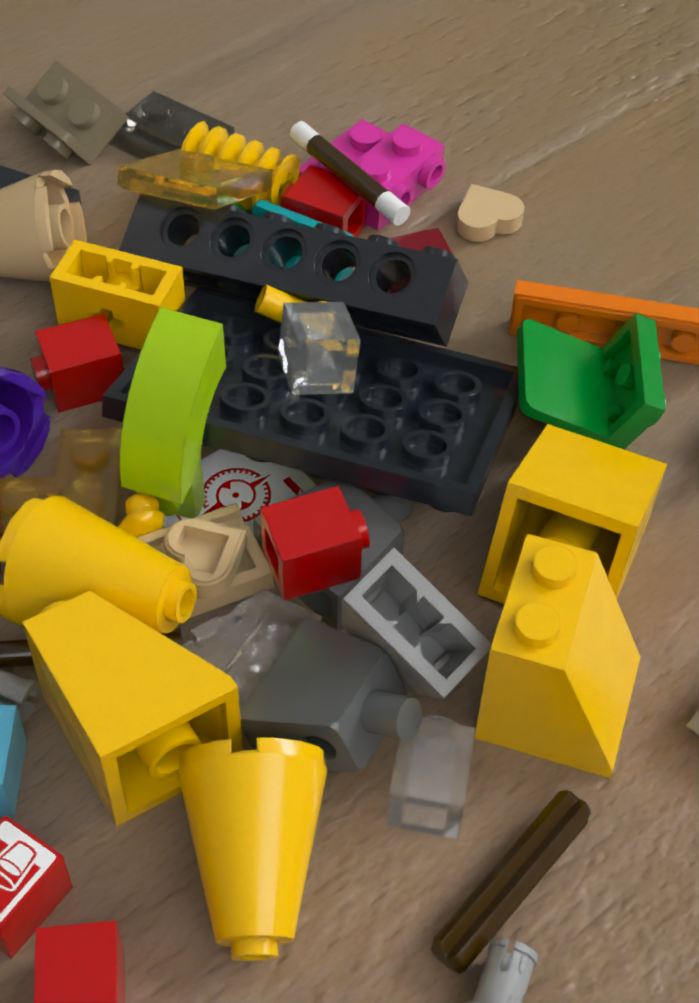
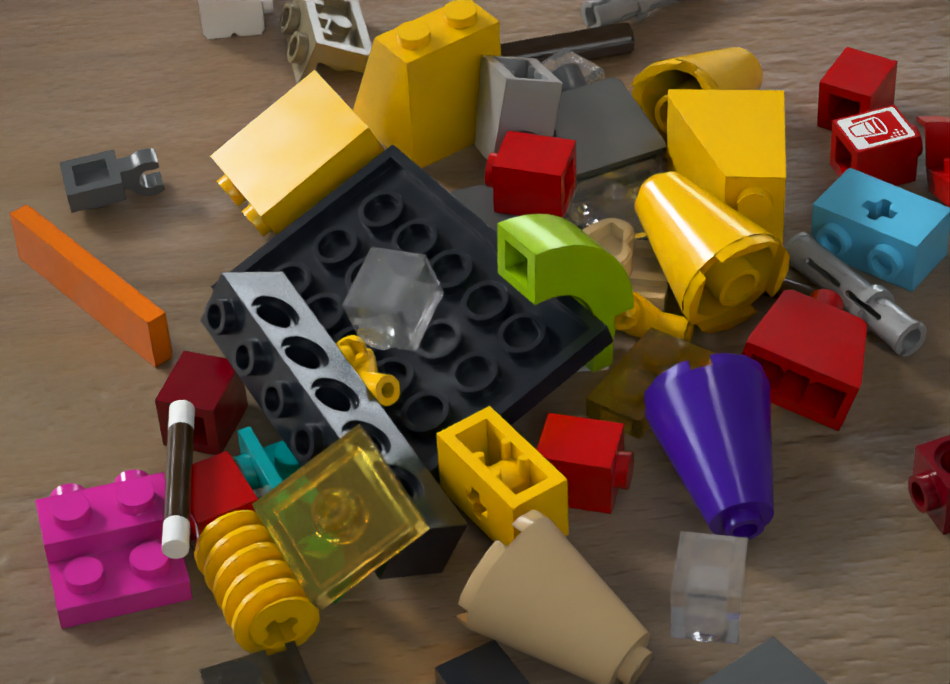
camera: 140 degrees left, 10 degrees down
(488, 213) = (60, 456): tan tile -> none
(592, 389) = (170, 242): green bracket -> none

